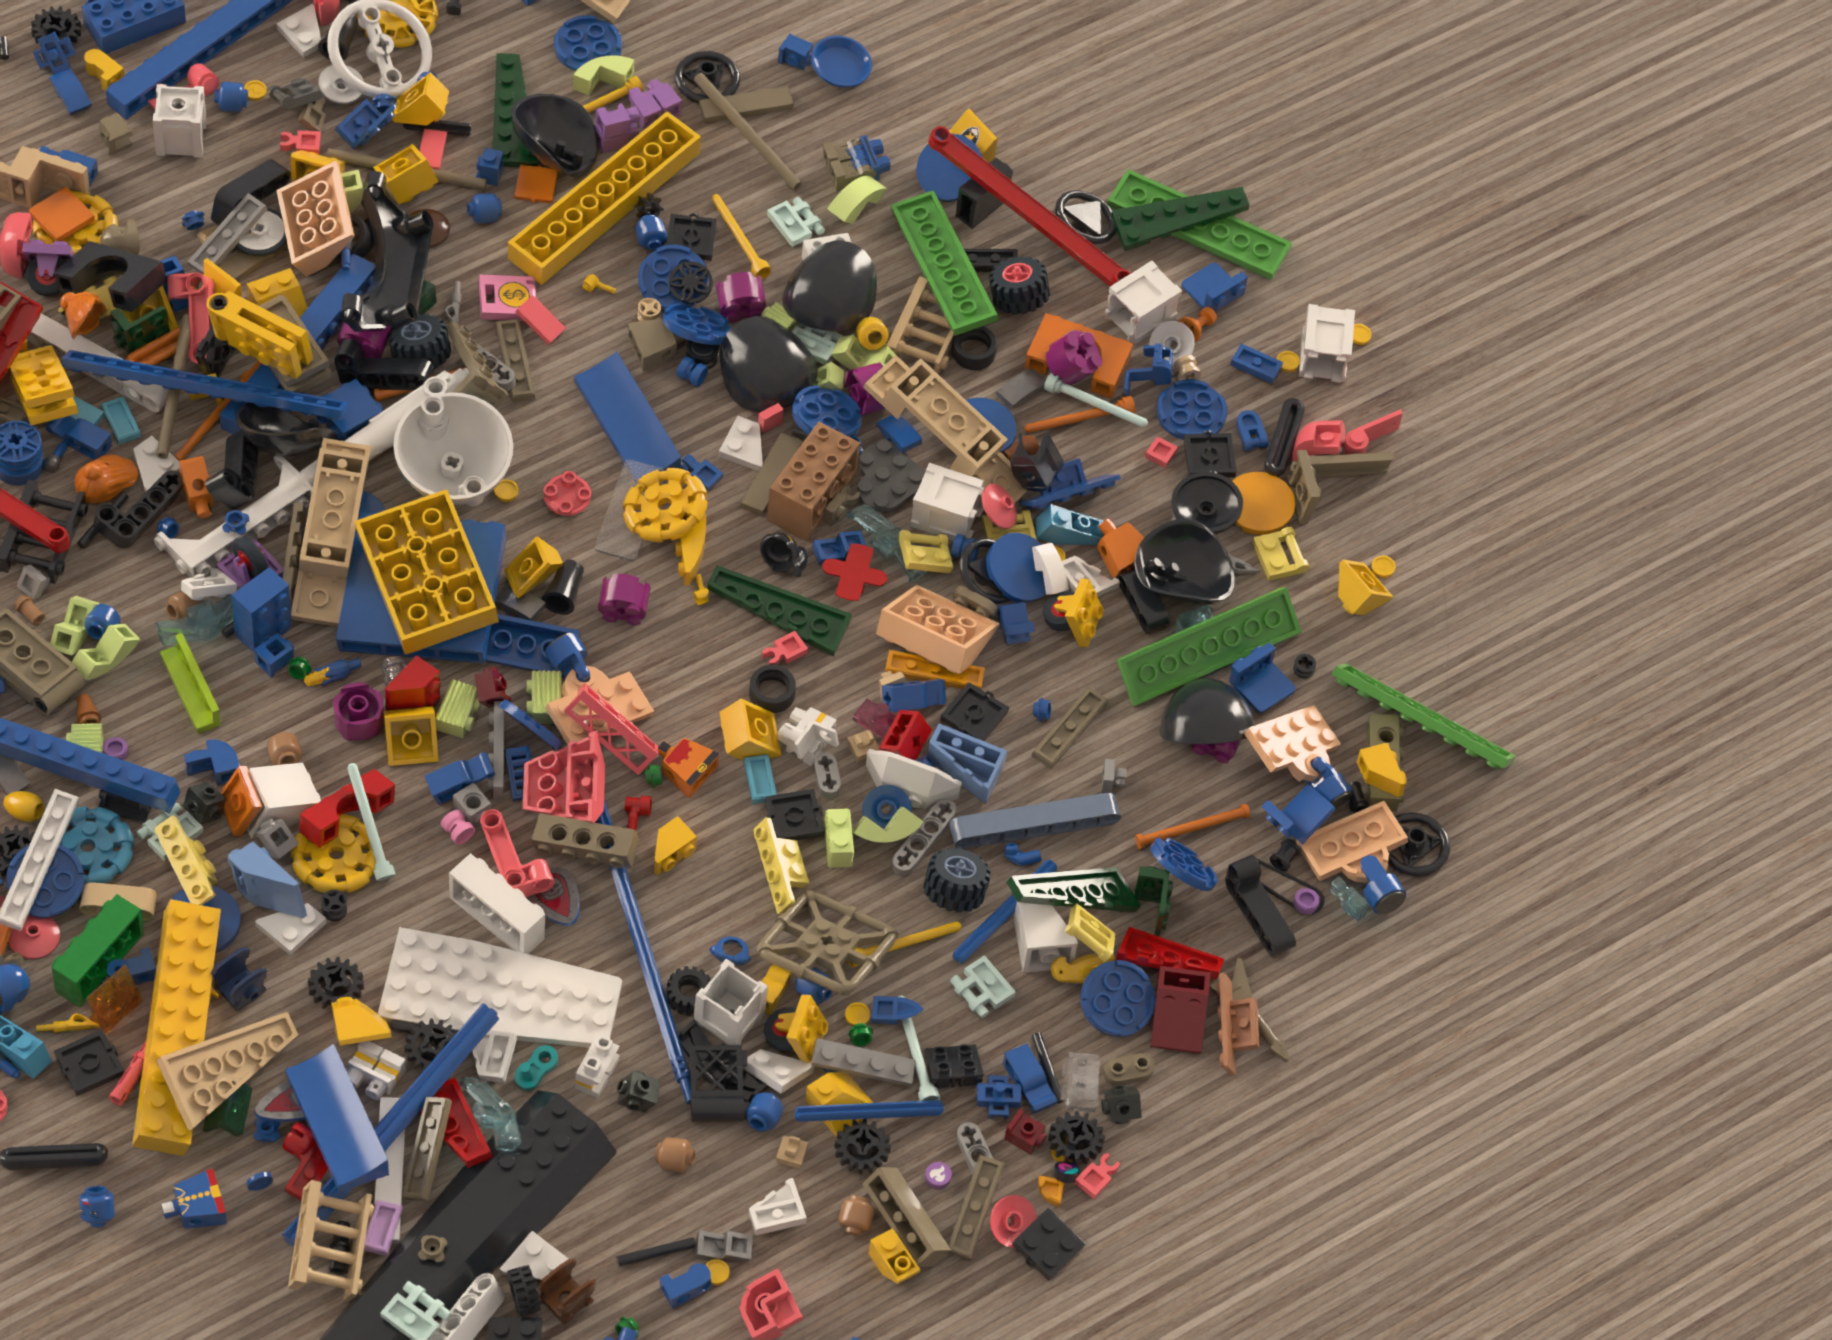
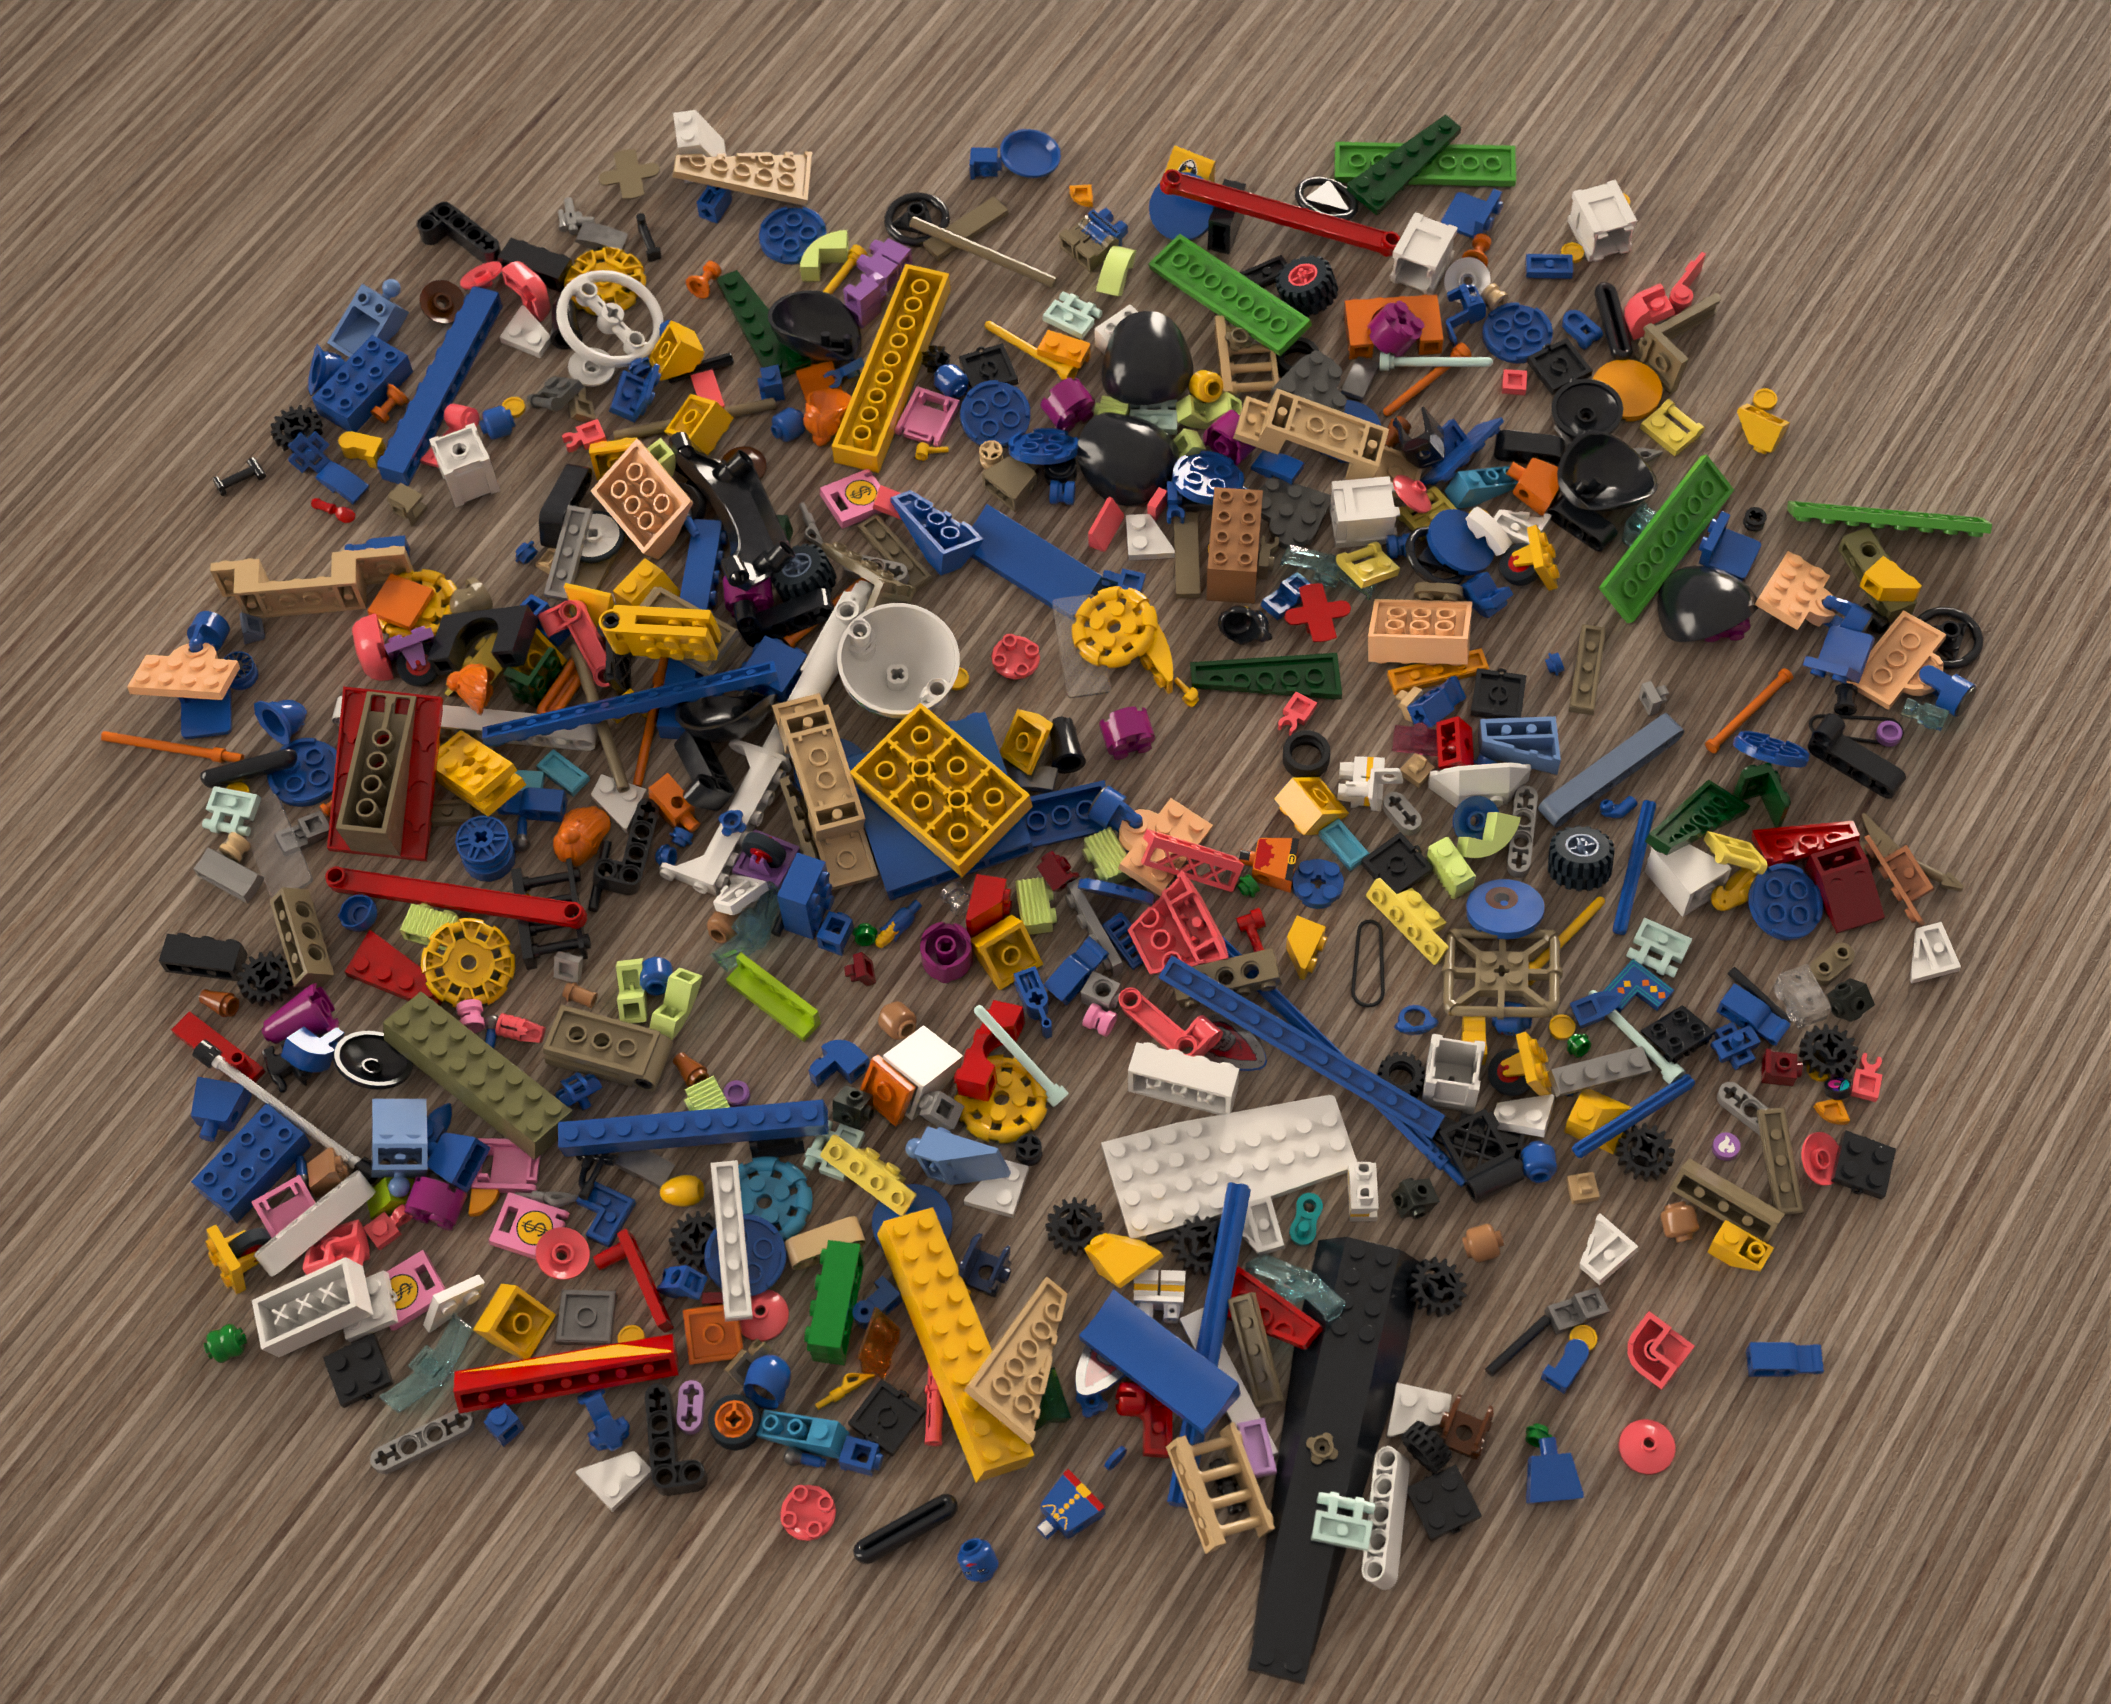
camera: 15 degrees left, 5 degrees up
(46, 1075) = (856, 1448): none -> blue brick
(56, 119) = (342, 513): none -> red piece
(155, 38) = (395, 397): none -> orange piece
(190, 518) = (681, 837): none -> blue plate
(279, 695) = (861, 970): none -> dark red tile
(412, 784) = (1032, 991): none -> blue piece
(477, 52) = (699, 284): none -> orange piece
(520, 210) = (825, 413): none -> orange hair
(560, 361) = (940, 537): none -> blue wedge
(566, 184) = (849, 370): none -> blue plate
(608, 259) = (924, 422): none -> bright pink container
(613, 924) = (1302, 1047): none -> blue plate
(622, 1181) = (1433, 1288): none -> black gear
(690, 282) = (1015, 411): black wheel -> none
(711, 880) = (1356, 963): none -> black piece
(714, 416) = (1105, 525): none -> coral slope
(717, 787) = (1322, 870): none -> blue plate
(767, 247) = (1064, 349): none -> light orange bracket
(784, 423) = (1174, 499): none -> blue plate
(865, 892) = (1505, 908): none -> blue tile
(870, 119) = (1082, 194): none -> light orange tile
(929, 300) = (1238, 339): none -> dark tan plate
(948, 1008) = (1640, 982): none -> blue tile
(971, 373) = (1314, 379): none -> dark grey plate
(1126, 507) = (1523, 446): none -> black beam
(1223, 1101) = (1932, 954): none -> white wing

